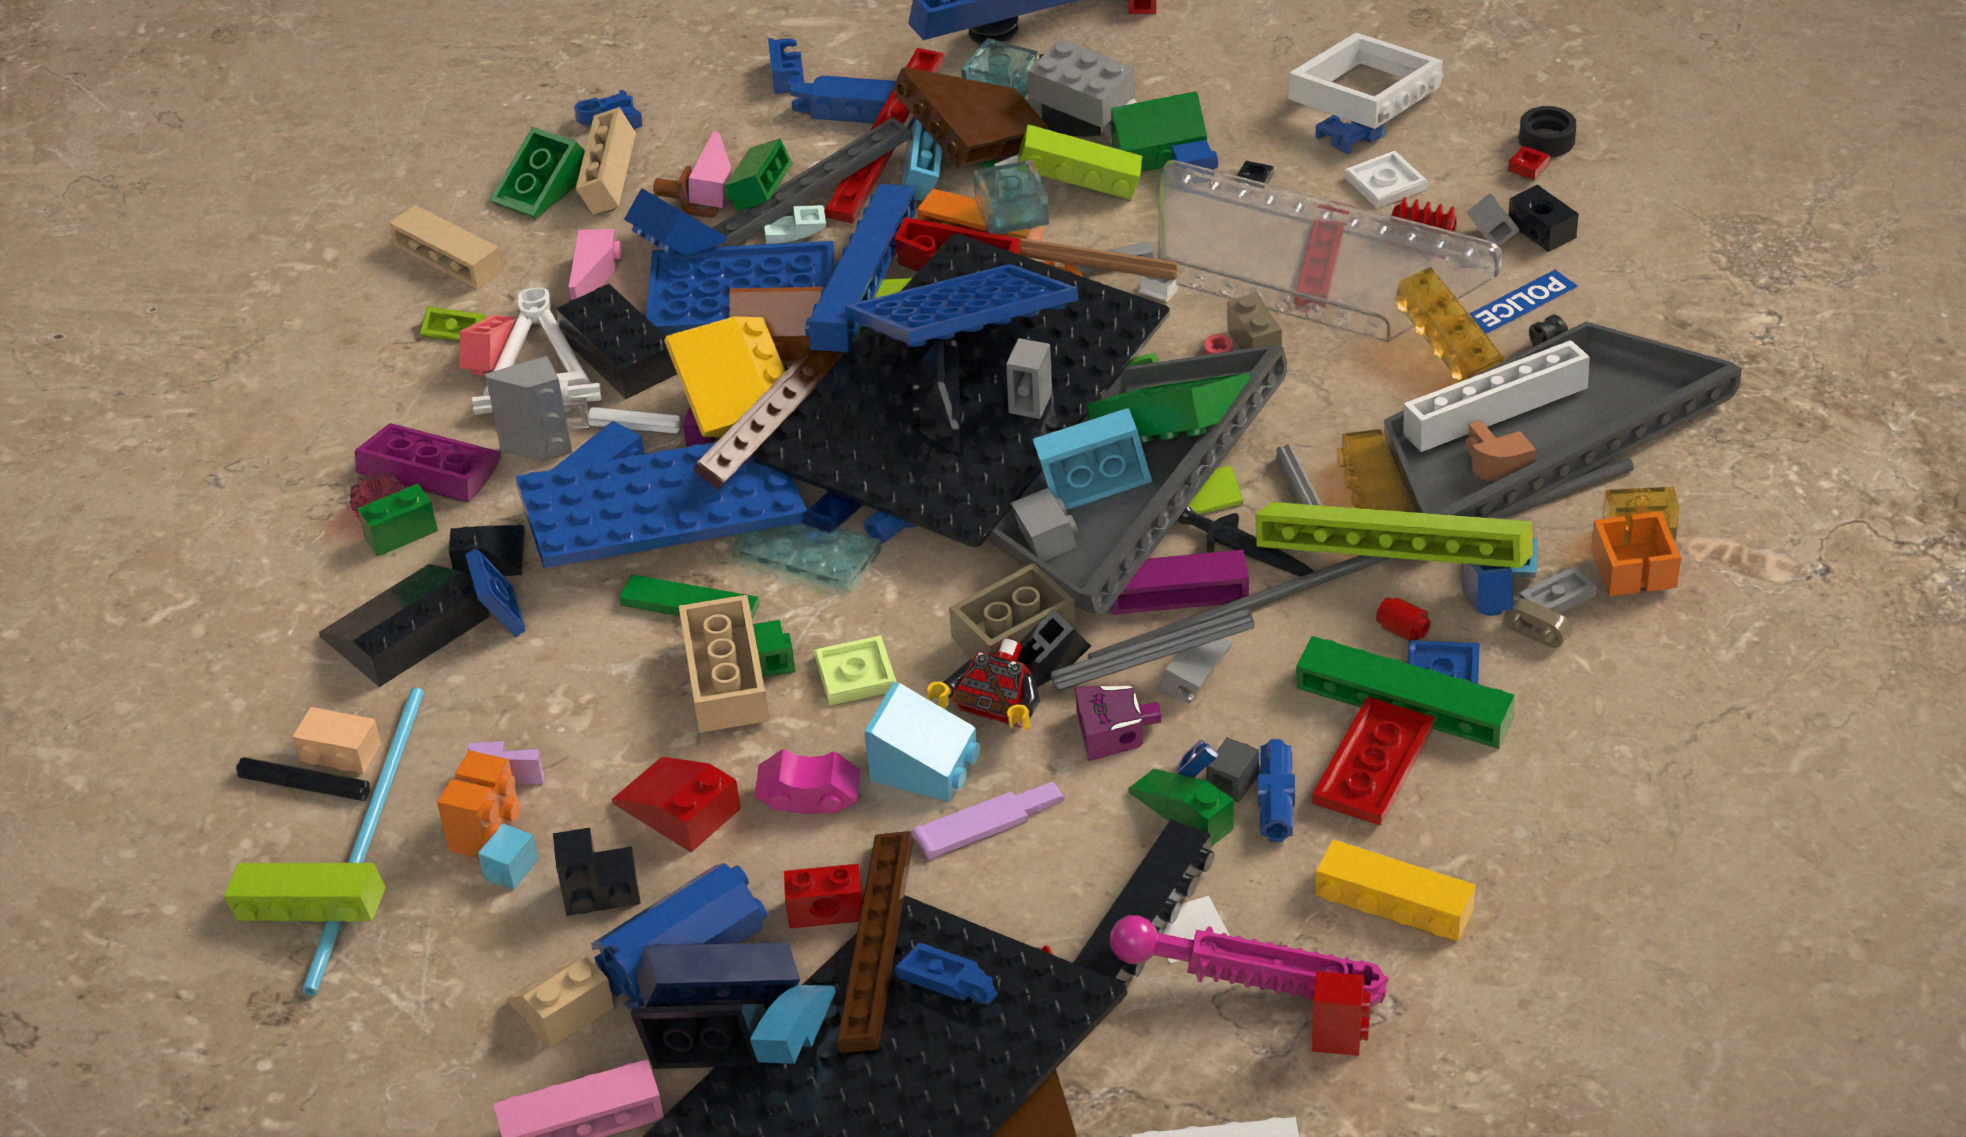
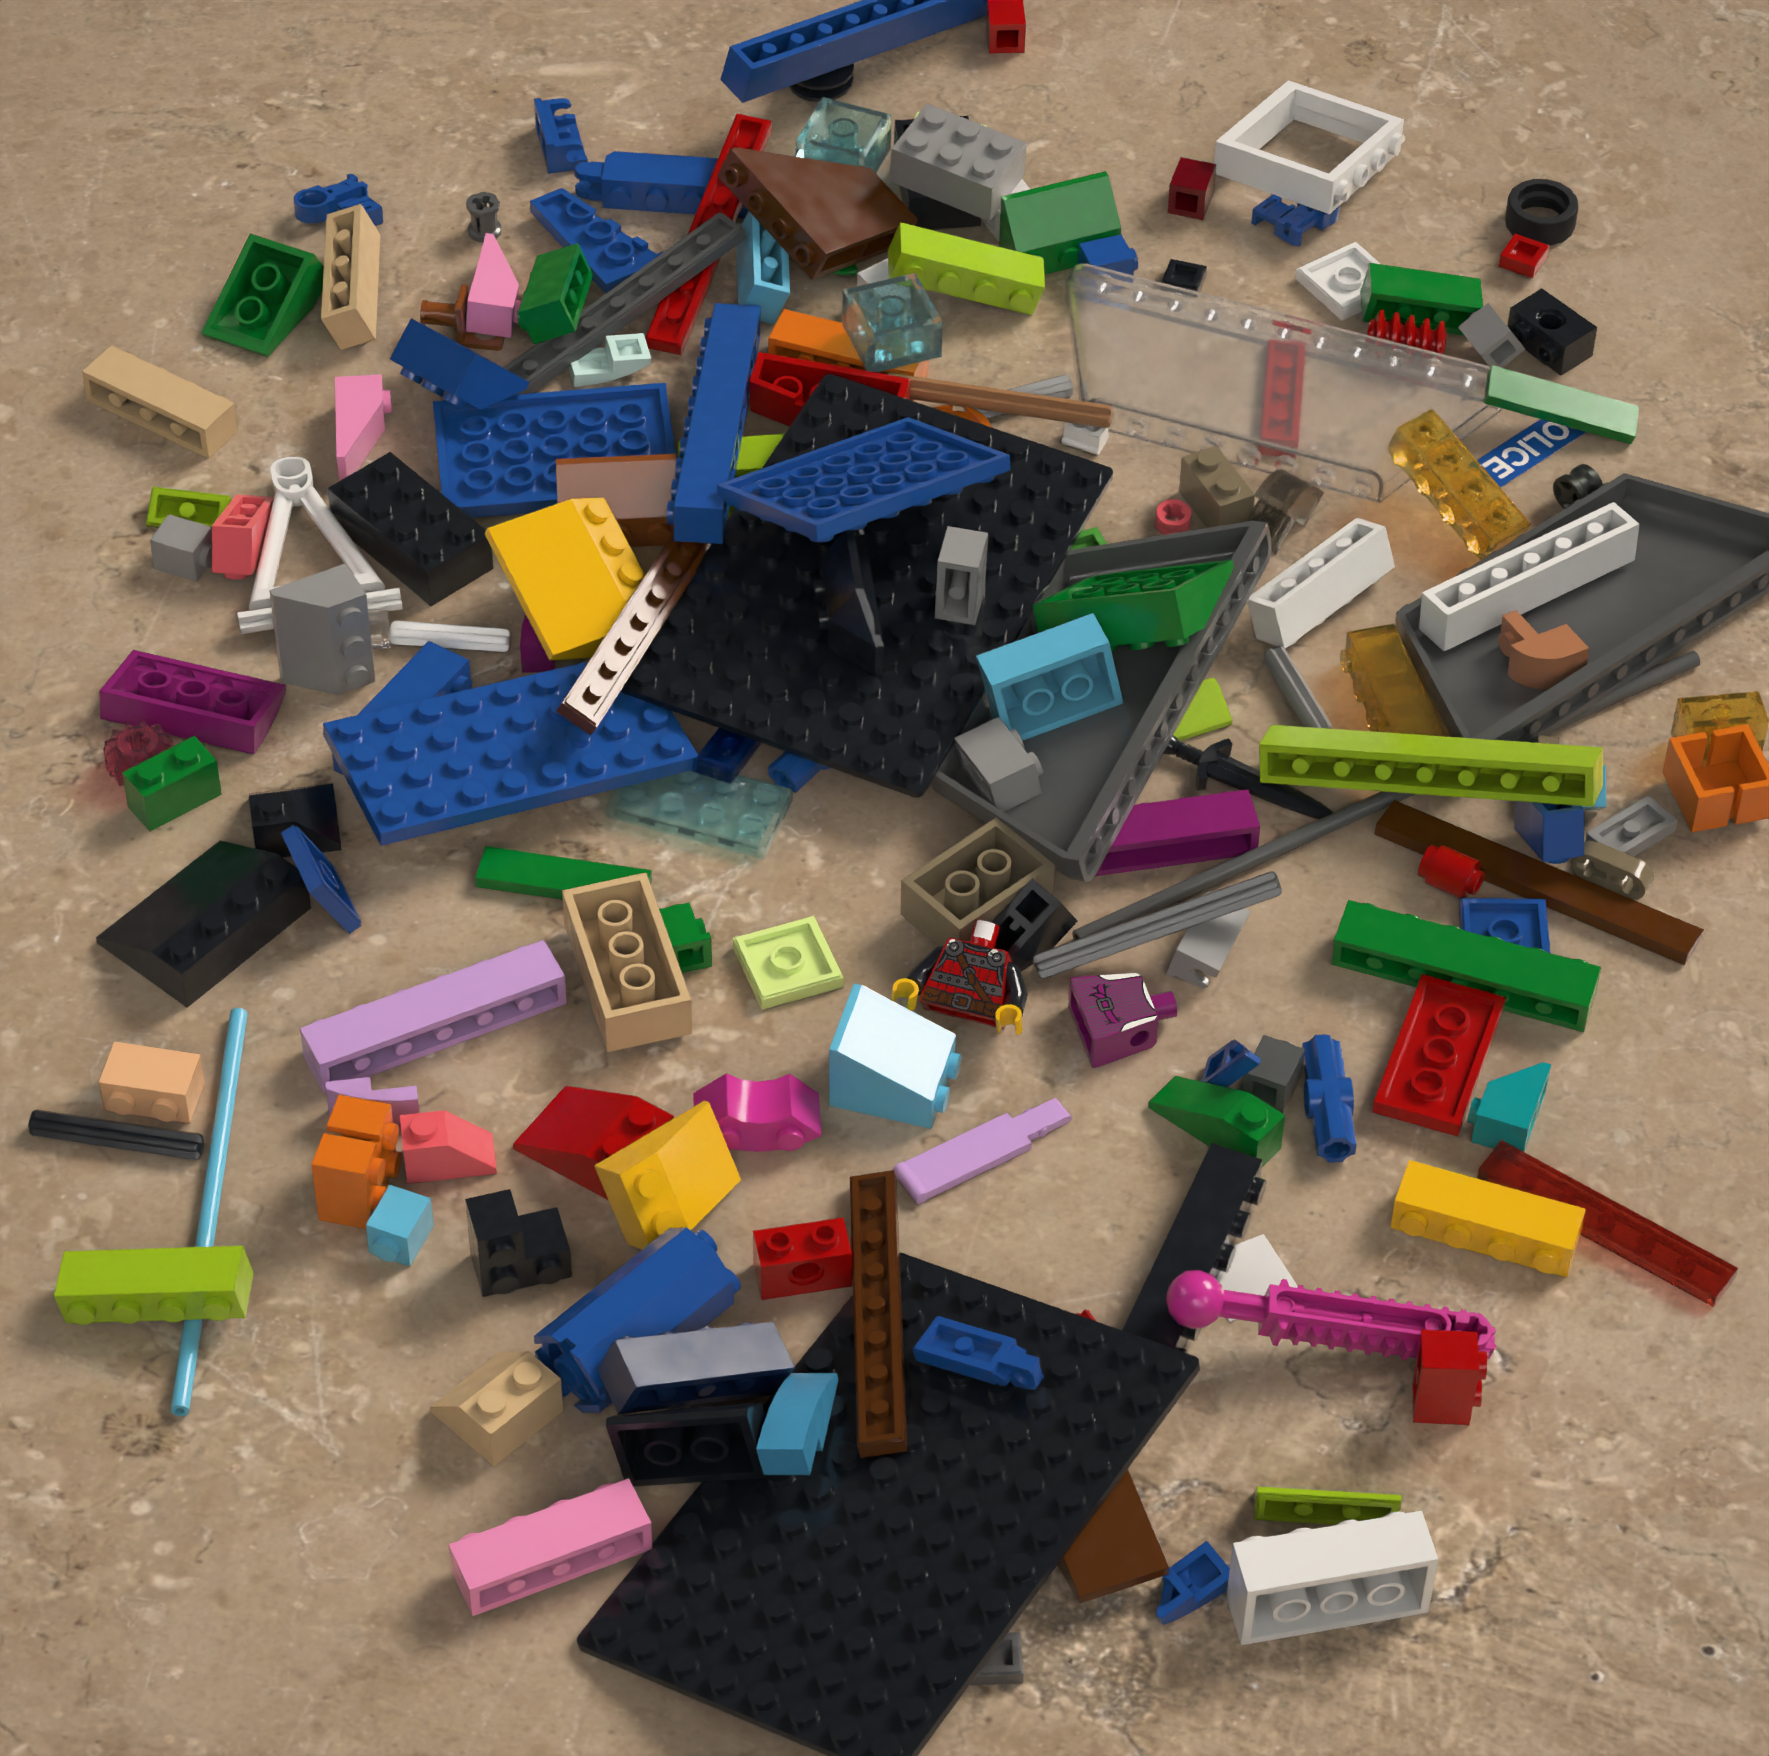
camera: 10 degrees left, 5 degrees up
(439, 350) = (182, 548): none -> light grey brick
(554, 798) = (444, 1147): none -> coral slope
(568, 697) = (434, 1015): none -> lavender brick
(716, 121) = (483, 216): none -> dark grey bush
(727, 824) = (669, 1176): none -> yellow slope
(801, 140) = (606, 248): none -> blue wing
(1213, 1112) = (1321, 1505): none -> lime slope
(1269, 110) = (1191, 188): none -> dark red brick
(1303, 338) = (1282, 502): none -> clear smoke brick
(1327, 398) = (1320, 583): none -> white brick
(1426, 804) = (1509, 1107): none -> teal slope
(1439, 187) = (1420, 294): none -> green brick
(1492, 636) = (1539, 880): none -> reddish brown tile
(1505, 902) = (1615, 1225): none -> clear red tile
(1542, 270) = (1561, 404): none -> tile

